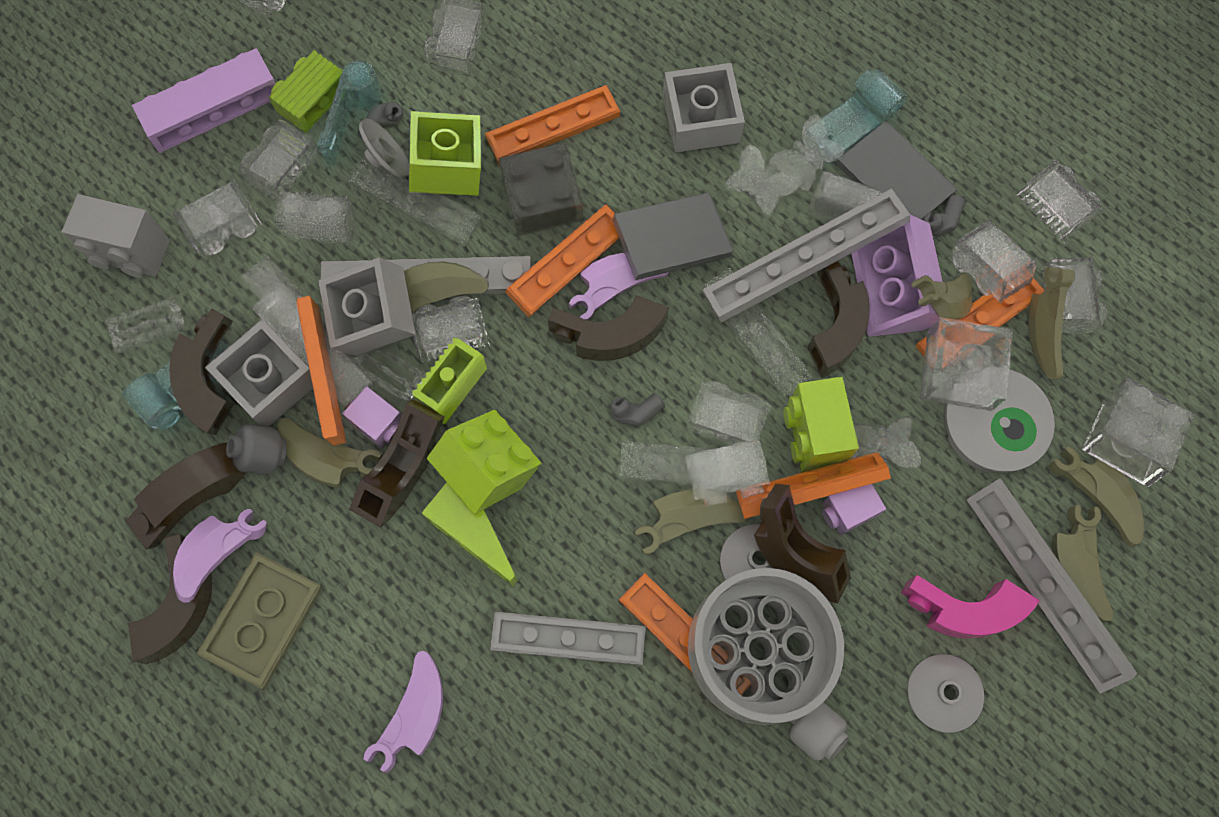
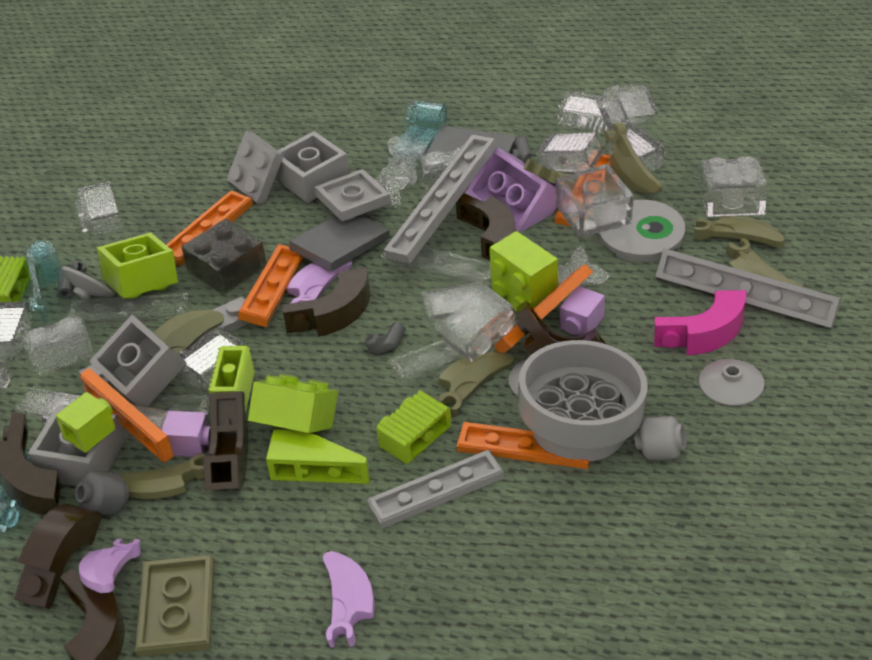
camera: 25 degrees left, 30 degrees down
(265, 376) = (86, 421): none -> lime brick
(591, 550) = (413, 426): none -> lime brick
(643, 74) = (255, 167): none -> light grey plate
(720, 181) = (352, 195): none -> light grey plate
(1104, 233) = (626, 105): none -> clear brick

